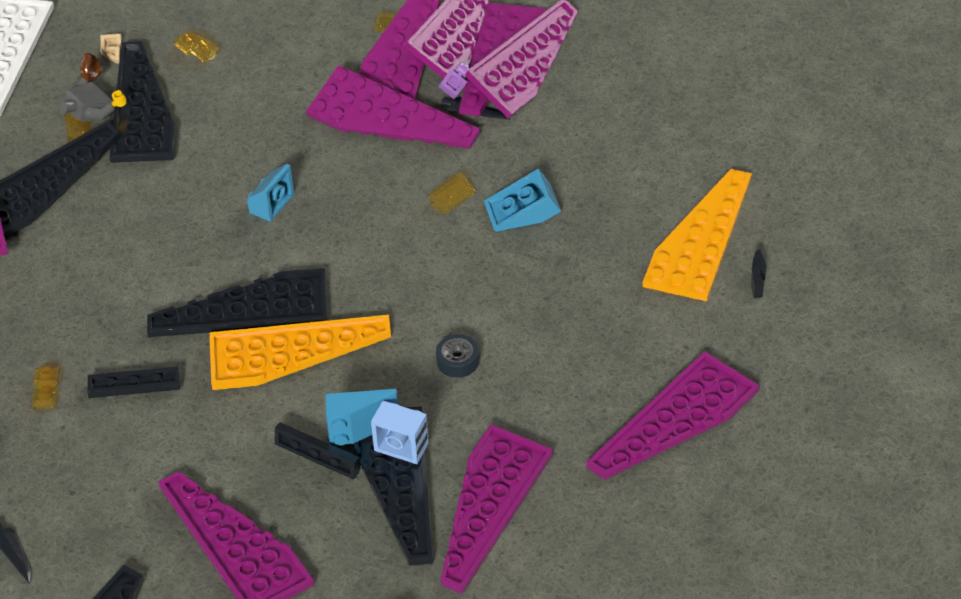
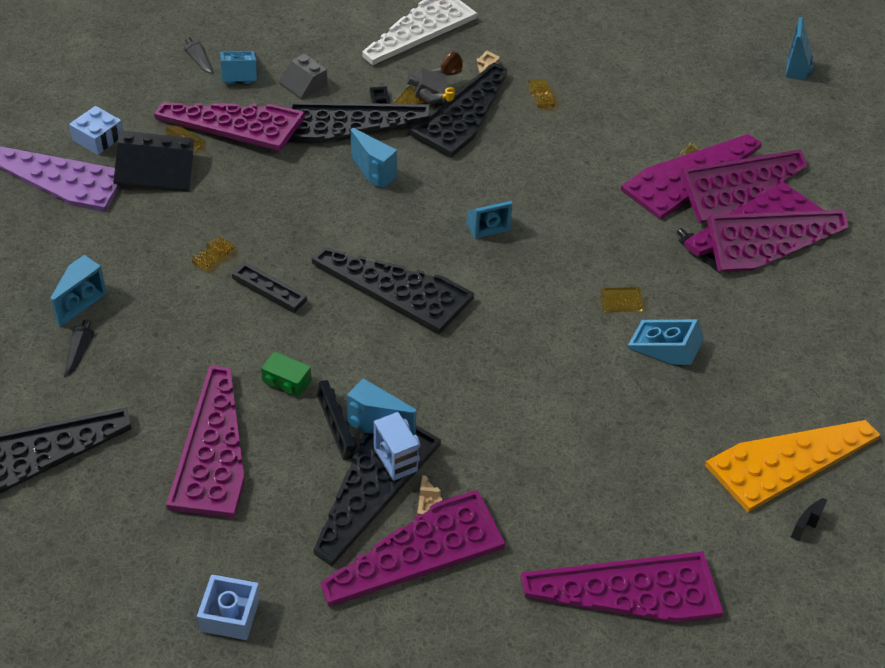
camera: 35 degrees right, 0 degrees up
(42, 143) = (379, 95): none -> black slope
(107, 204) = (374, 158): none -> dark azure slope
(233, 443) = (286, 374): none -> green brick
(272, 352) = (376, 327): light orange wing -> none
(366, 107) = (621, 203): magenta wing -> none
(448, 352) = (506, 420): black wheel -> none
(454, 80) = (697, 220): medium lavender plate -> none
(454, 458) = (428, 496): none -> tan slope

